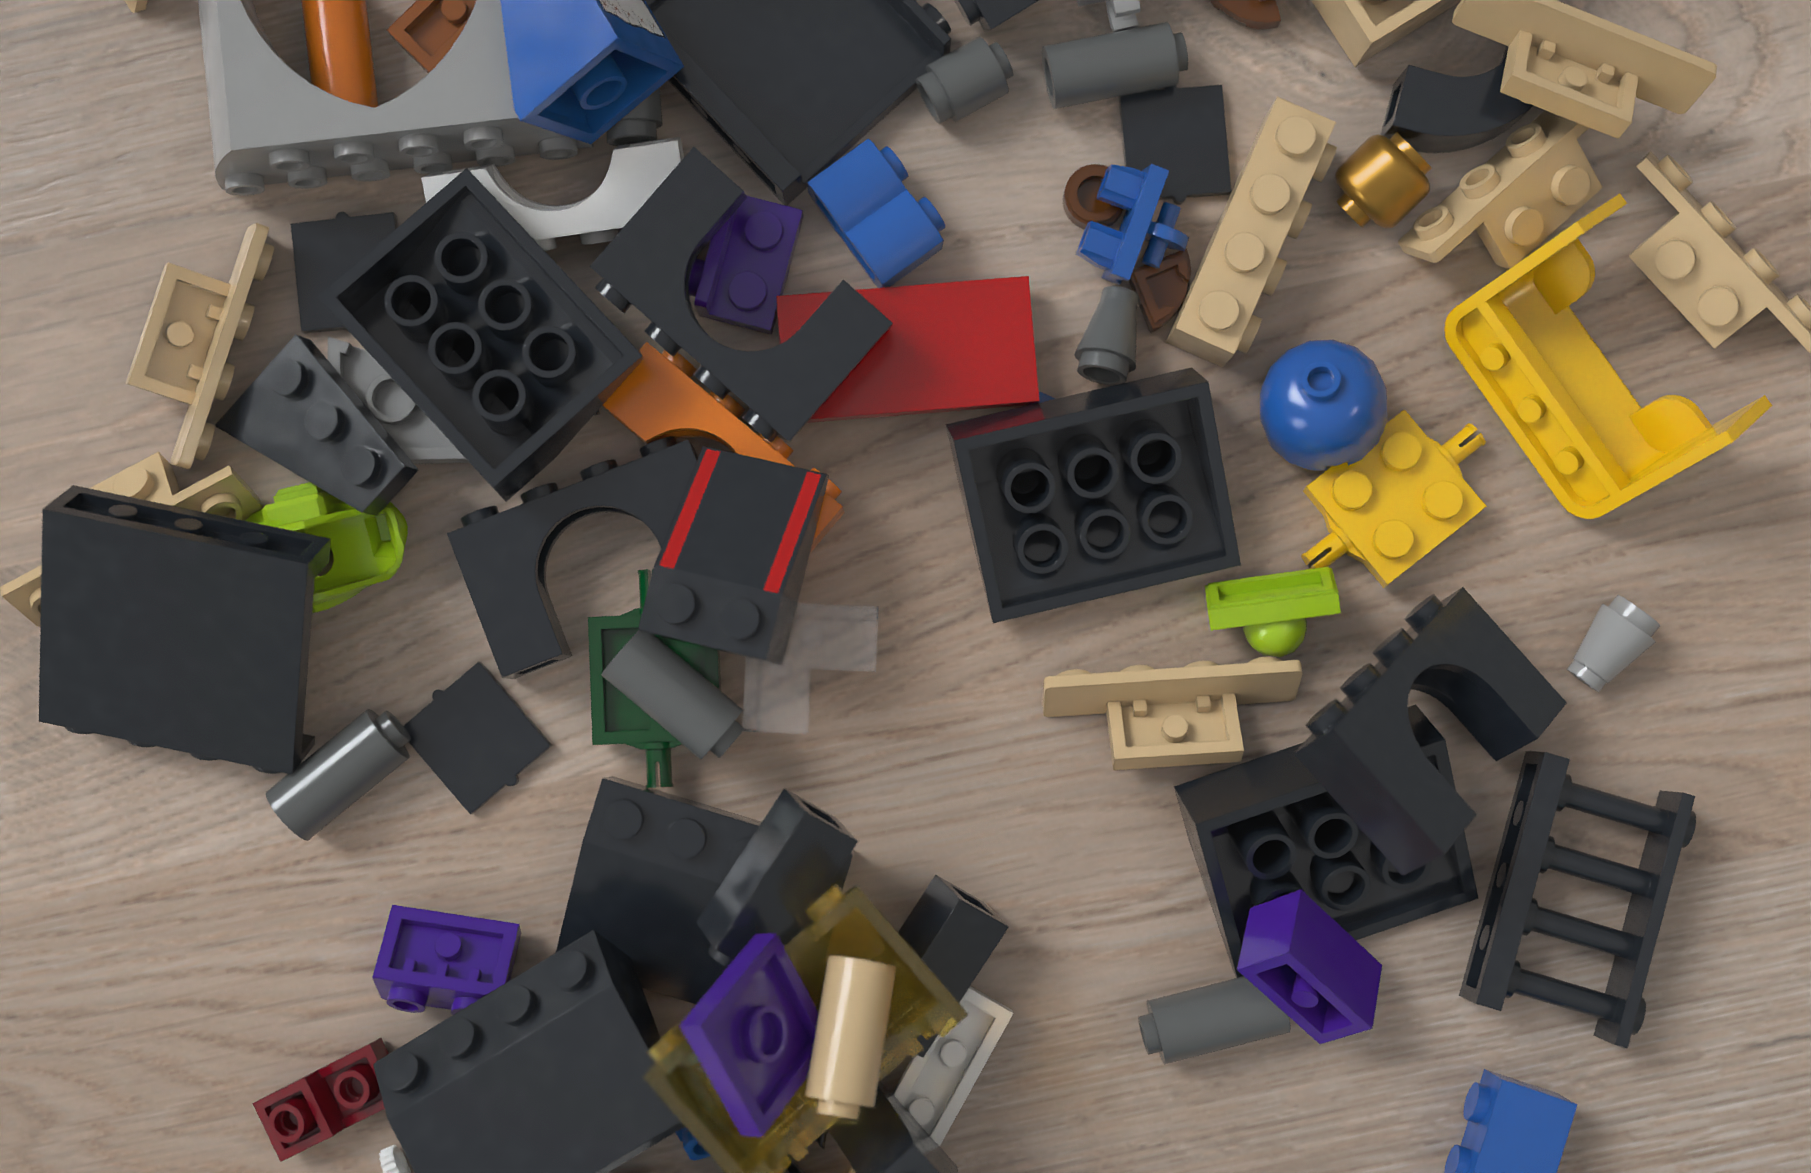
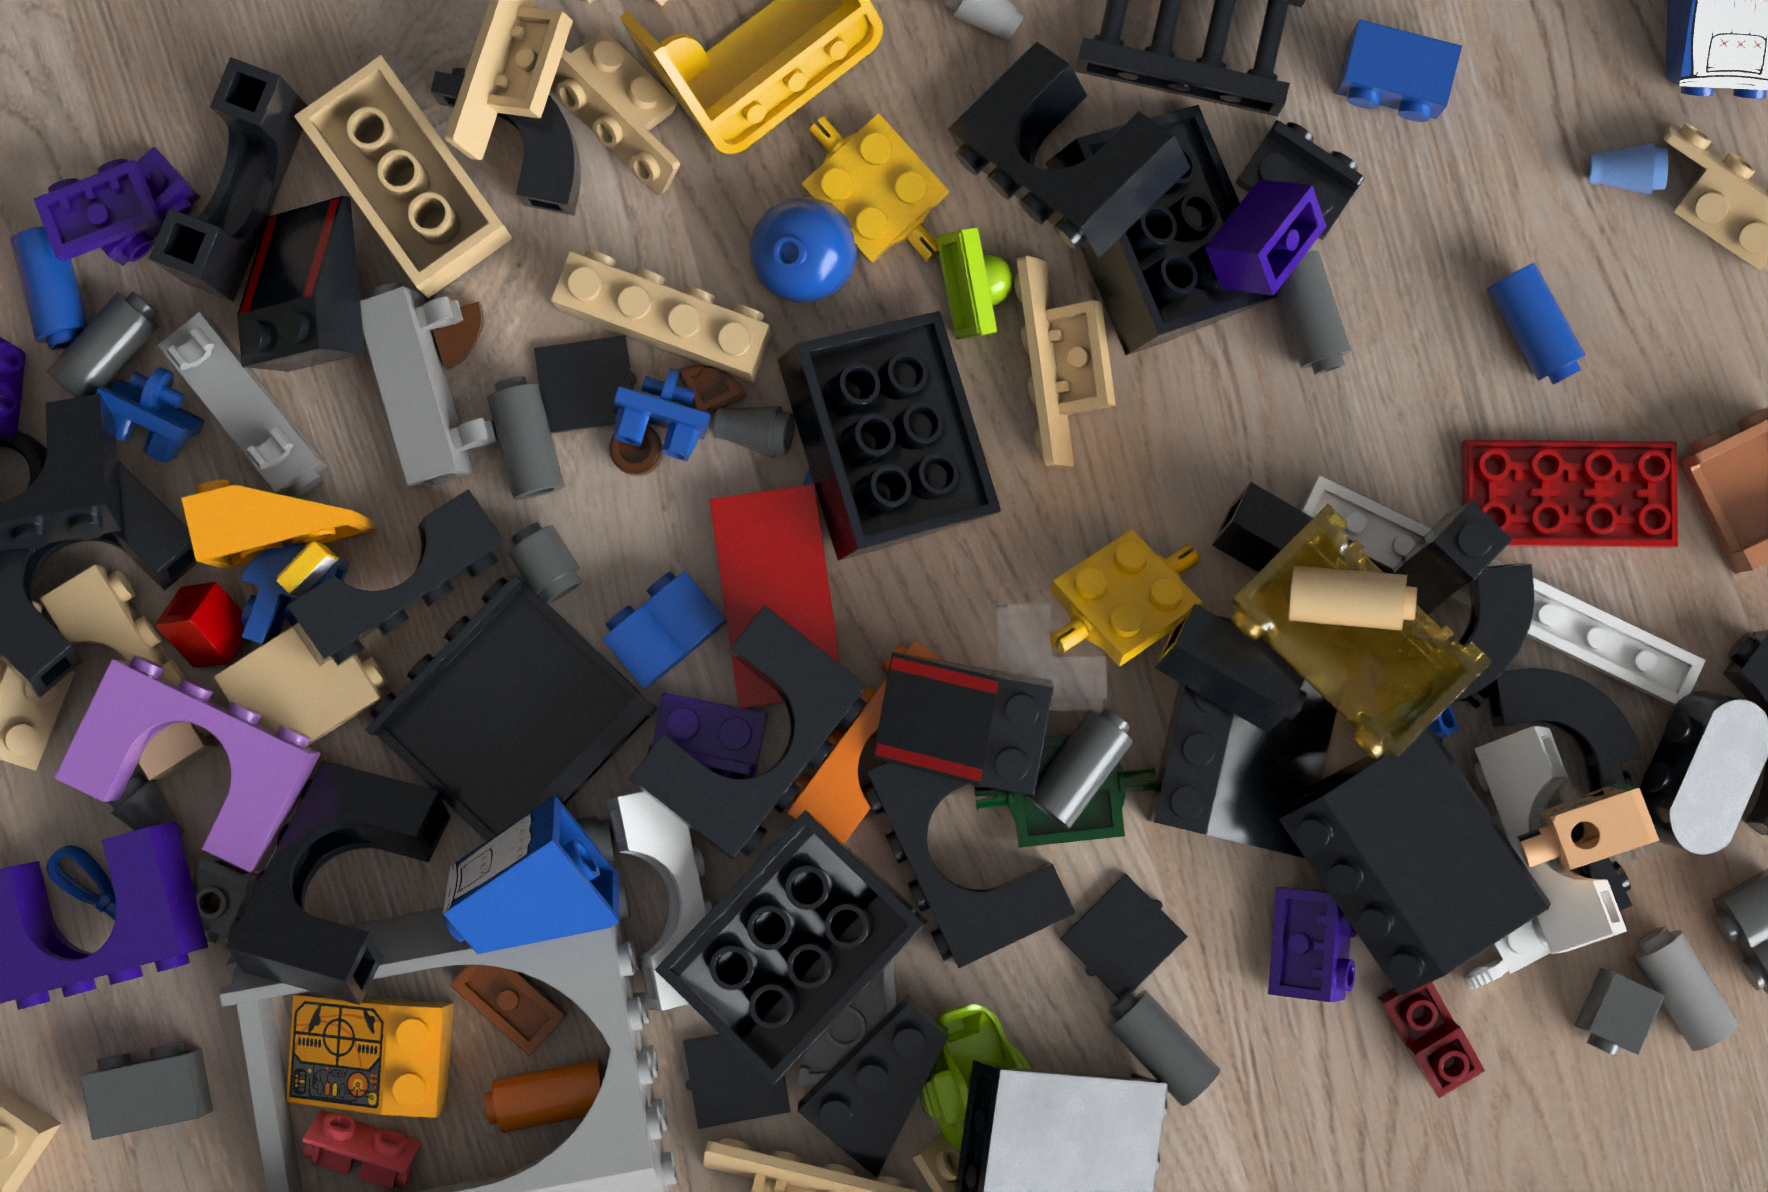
camera: 85 degrees left, 0 degrees up
(755, 1034) = (1356, 671): dark purple plate -> none
(877, 763) = (1123, 597): none -> yellow plate
(1382, 181) = (612, 210): pearl gold head -> none
(1406, 1010) = (1293, 158): none -> black bracket

